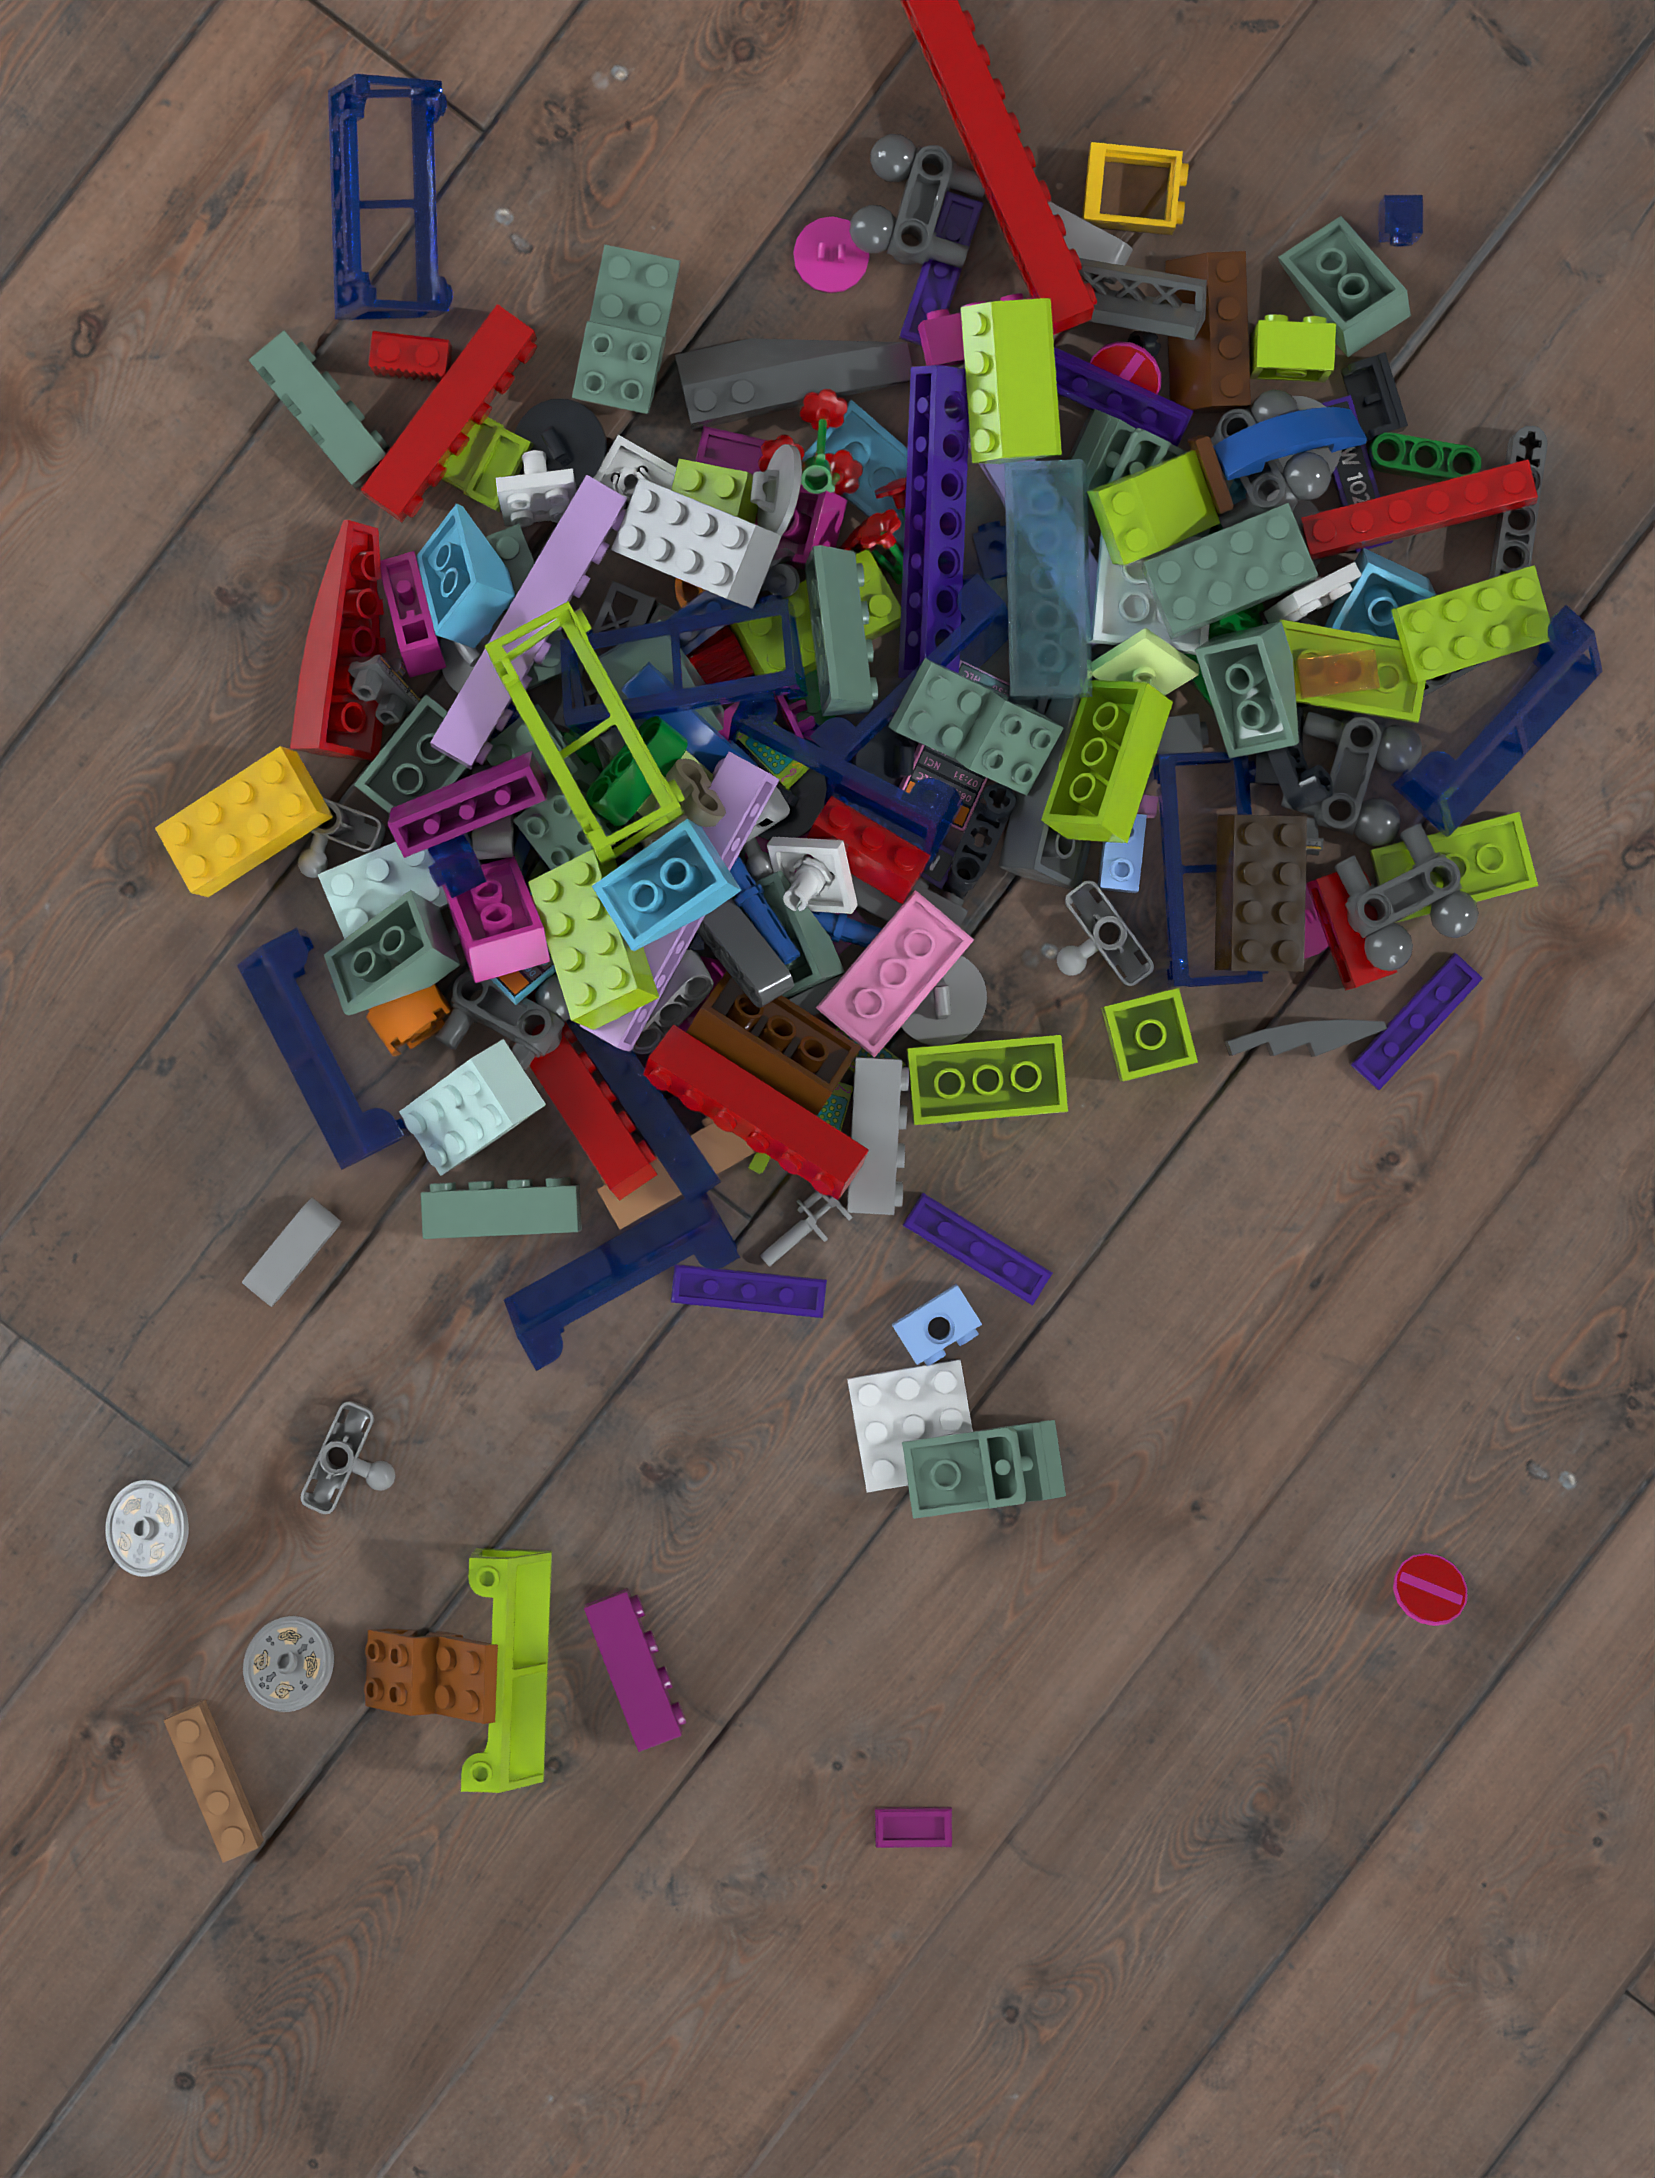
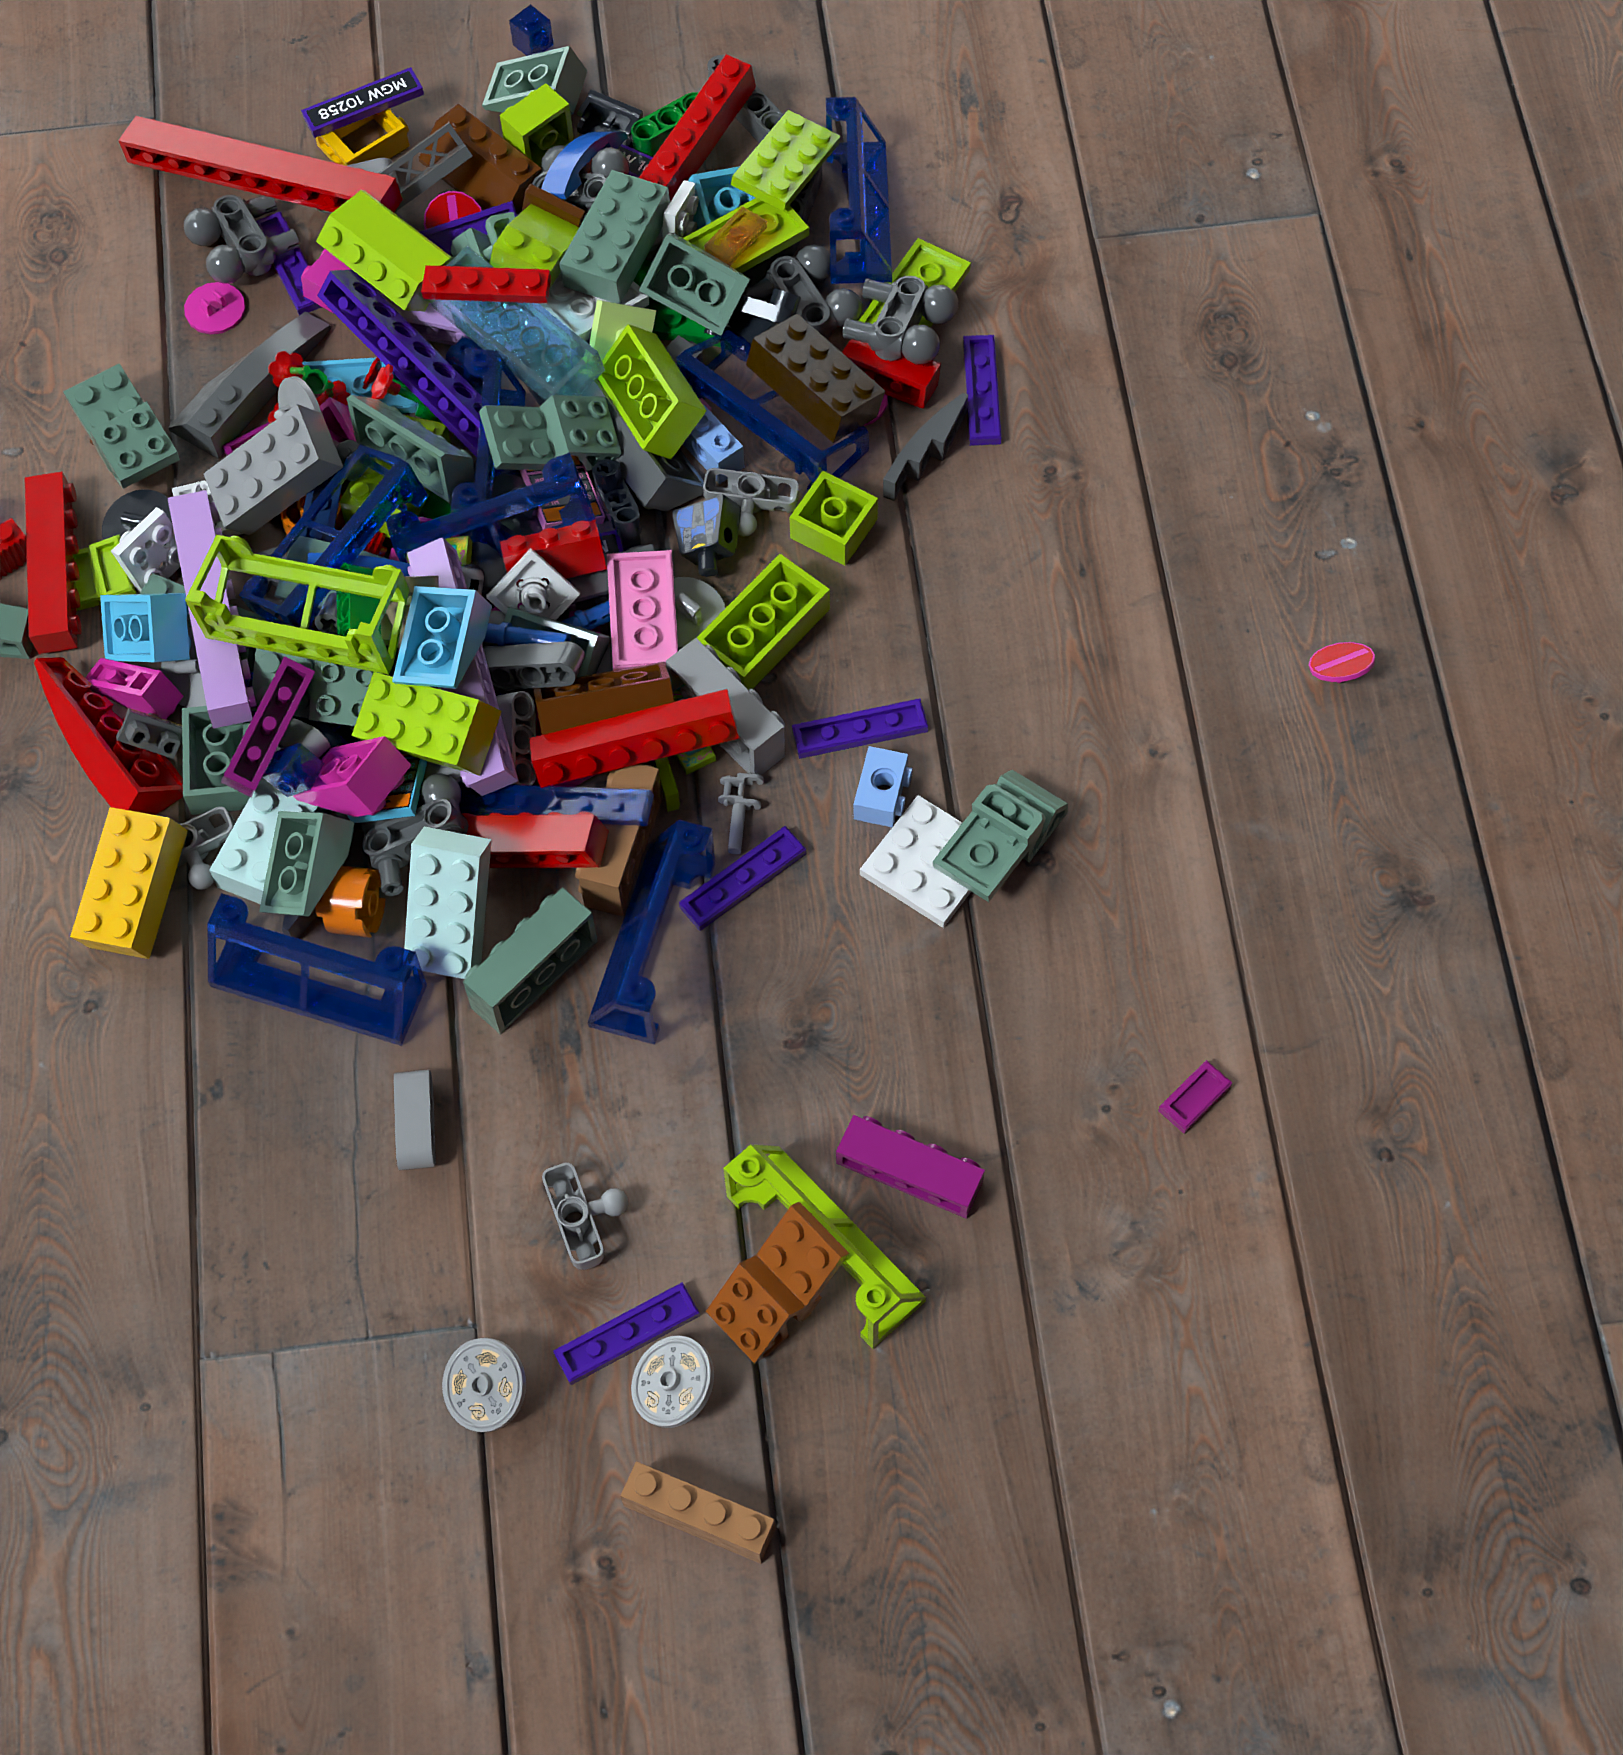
camera: 45 degrees left, 25 degrees down
(294, 1585) = (626, 1333): none -> dark purple tile
(1026, 944) = (708, 532): none -> torso
(1056, 523) = (486, 284): none -> red plate
(1159, 163) = (362, 102): none -> tile

